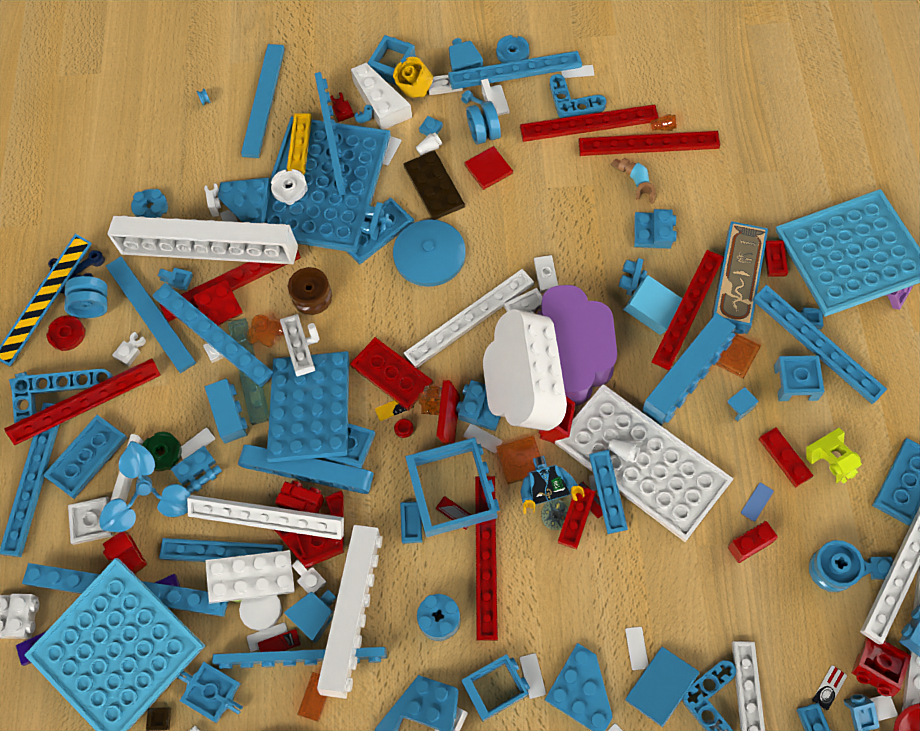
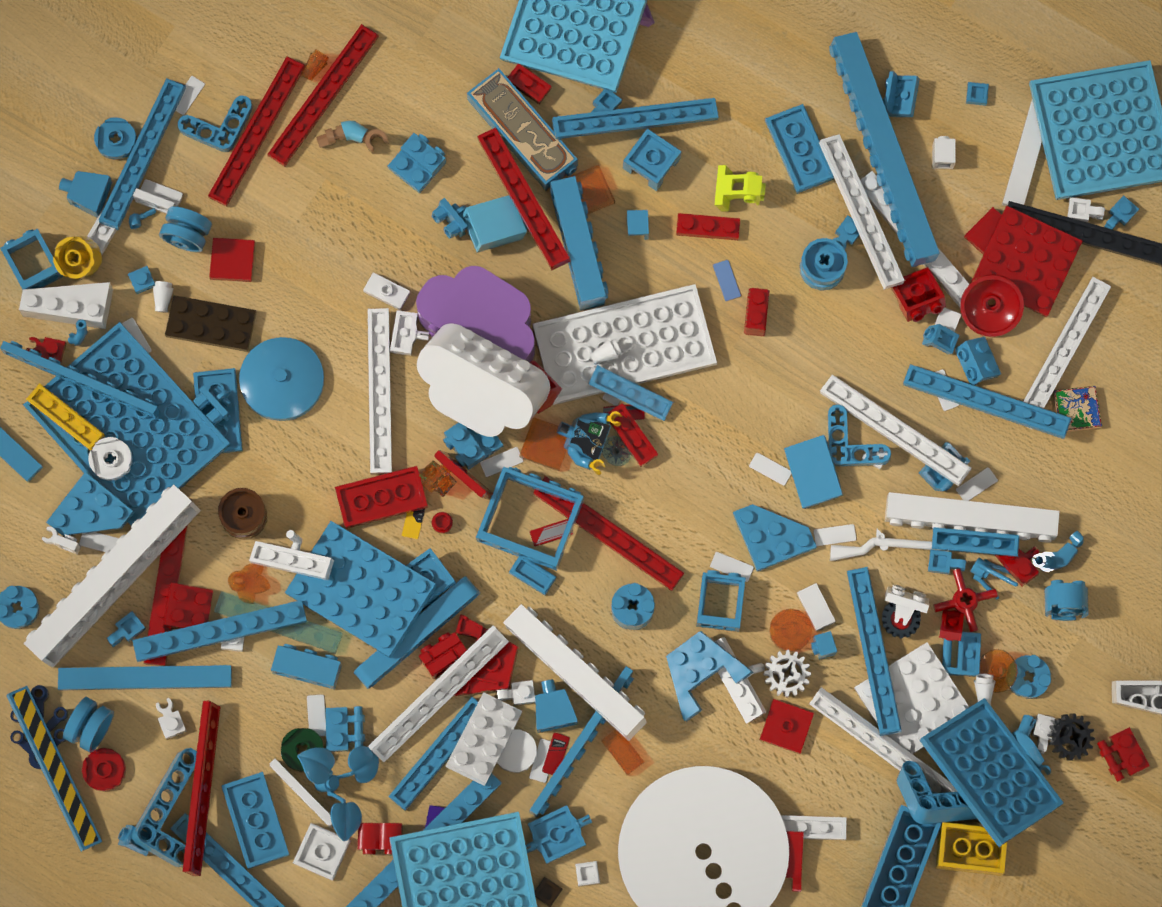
camera: 60 degrees left, 10 degrees up
(829, 687) = (905, 346): sticker -> none

